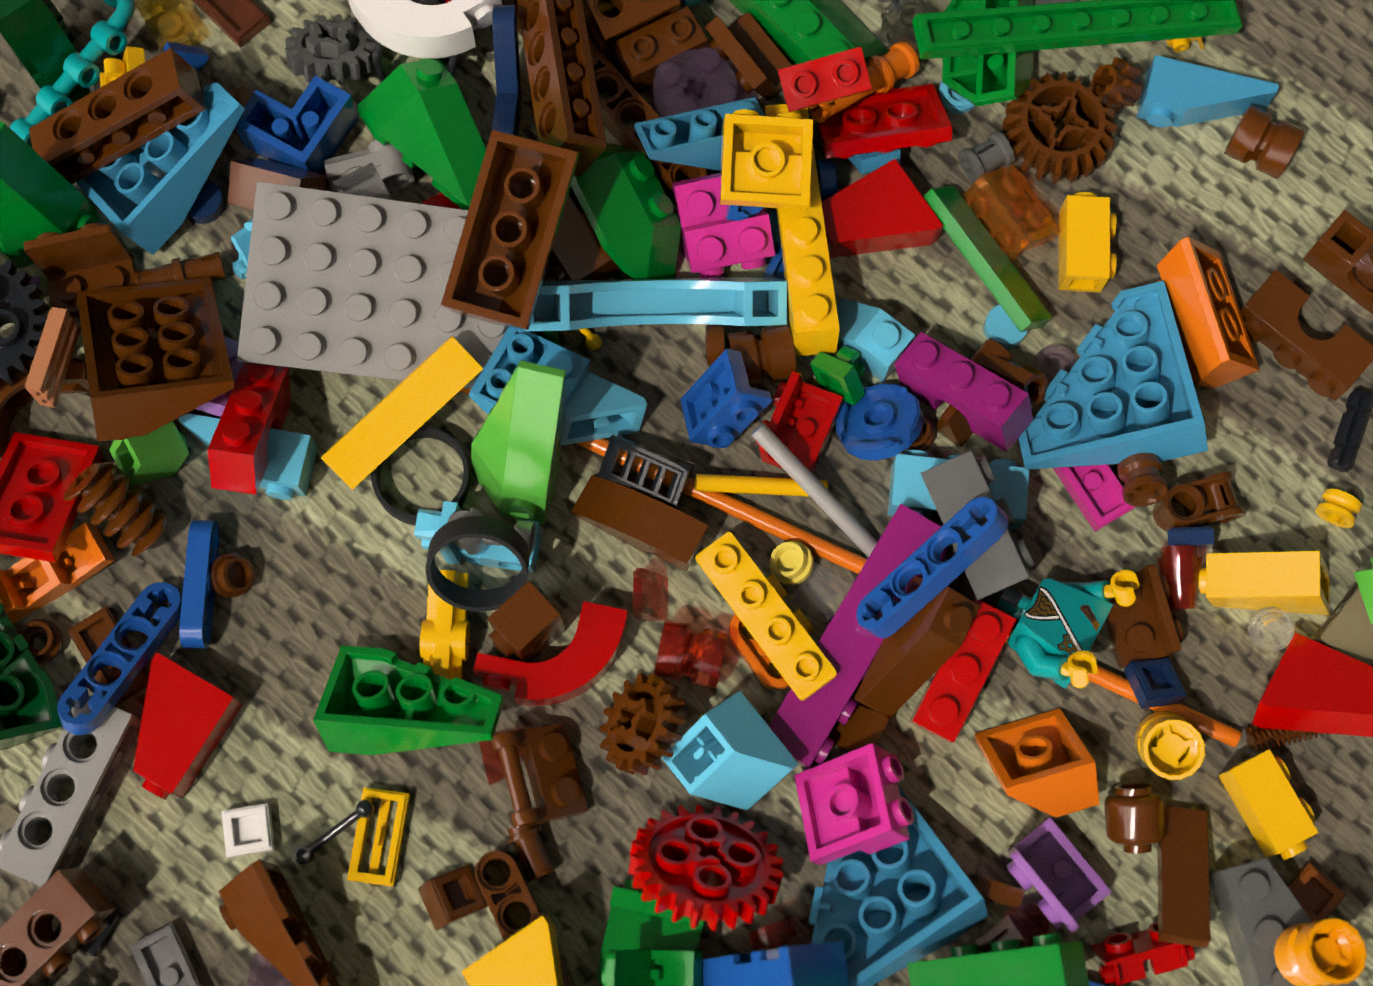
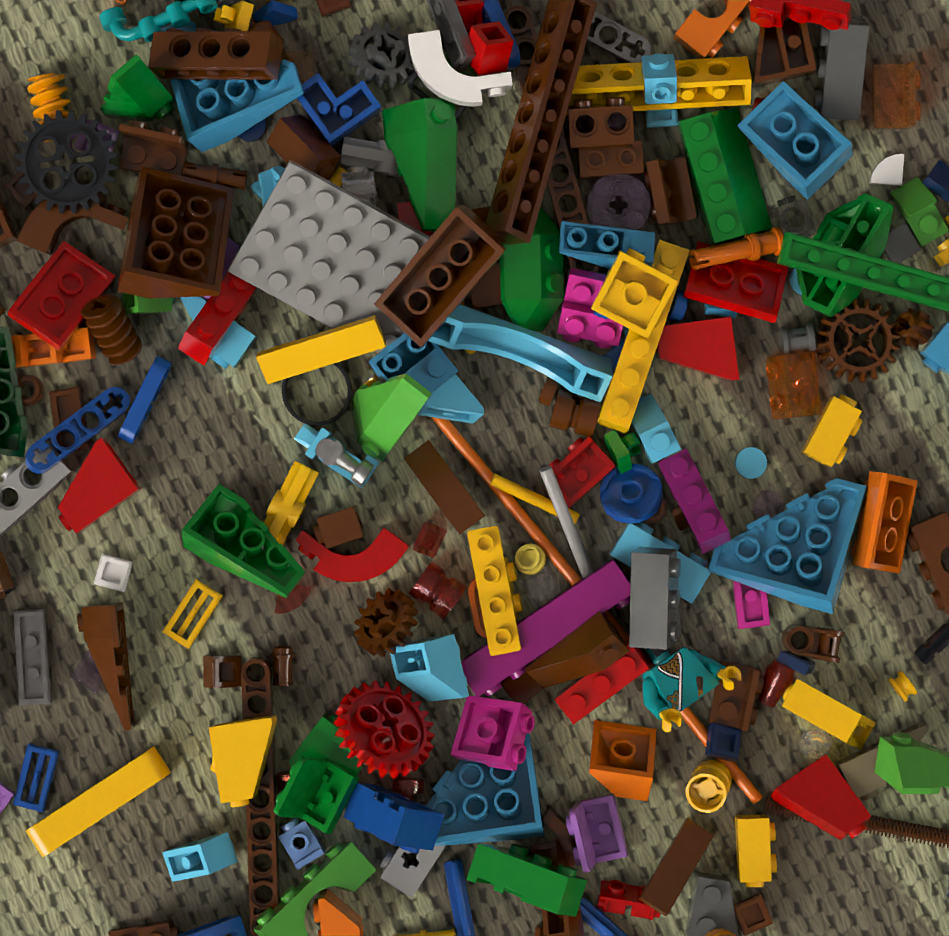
camera: 25 degrees right, 15 degrees up
(52, 357) = (109, 210): nougat tile -> none
(231, 575) = (167, 403): reddish brown plate -> none
(305, 853) = (142, 602): black hinge -> none
(483, 528) = (334, 462): black tyre -> none
(507, 69) = (488, 150): dark blue beam -> none
(550, 773) = (315, 626): reddish brown plate -> none
(681, 469) = (455, 463): black slope -> none
(722, 402) = (531, 435): blue bracket -> none
(824, 79) = (706, 246): red hinge -> none
(935, 573) = (608, 621): blue beam -> none
(987, 259) = (759, 413): green tile -> none
(1001, 363) = (727, 497): reddish brown piece -> none
(1135, 817) = (666, 818): reddish brown head -> none
(1142, 479) = (781, 612): reddish brown wheel -> none

